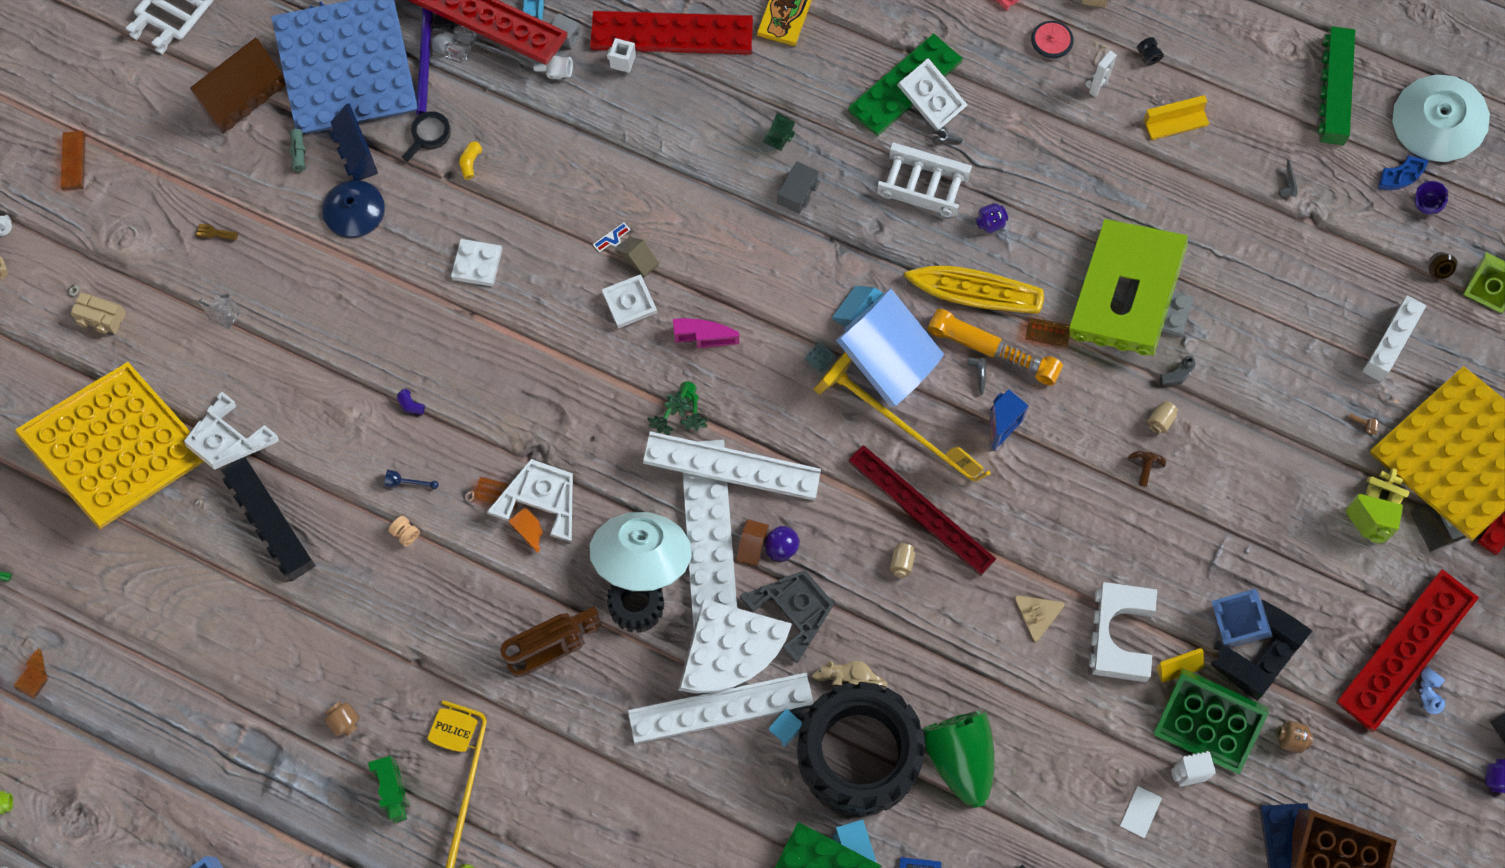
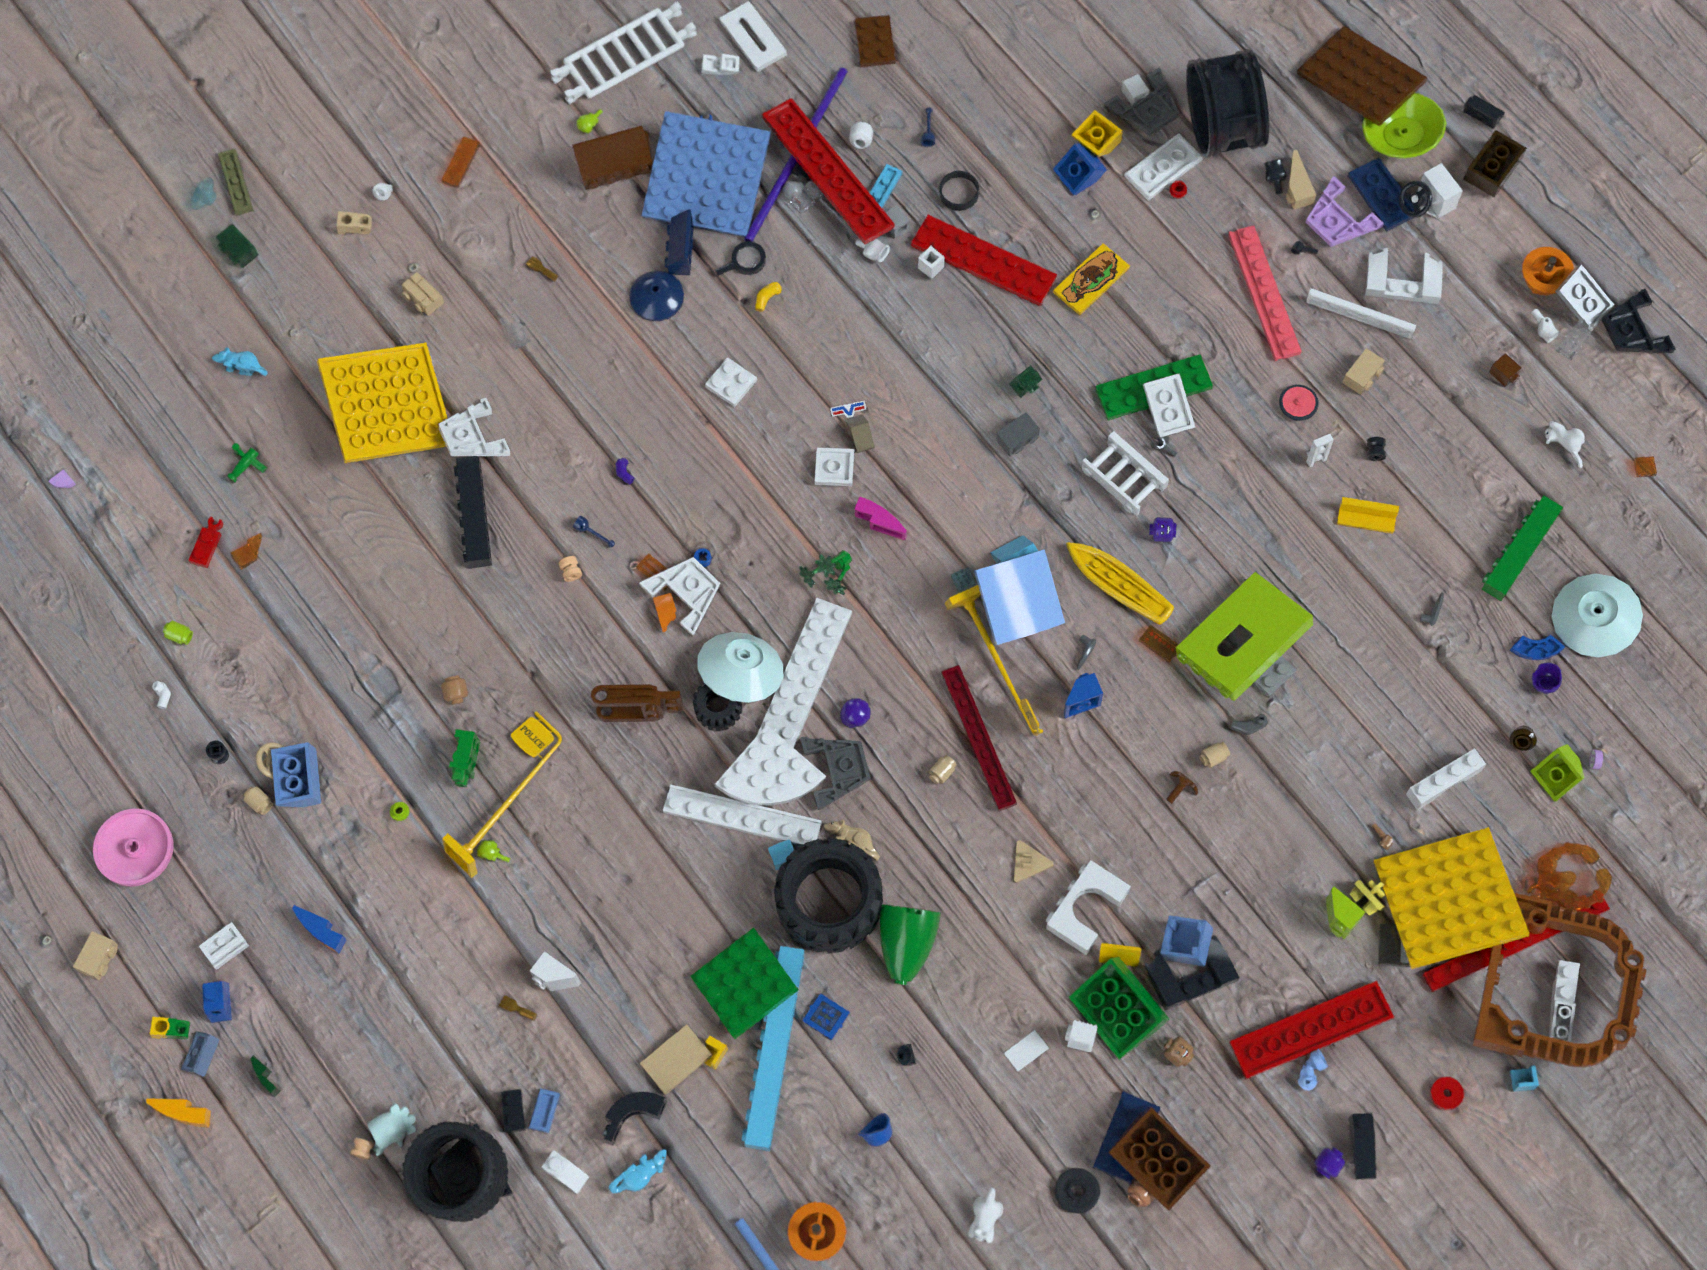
camera: 30 degrees right, 0 degrees up
(190, 64) = (587, 122): none -> lime piece
(297, 150) = (635, 229): sand green pin -> none
(538, 448) = (702, 551): none -> blue bush
(732, 466) = (846, 634): white plate -> none
(752, 542) = (832, 701): dark orange slope -> none
(946, 325) = (1078, 600): light orange piece -> none

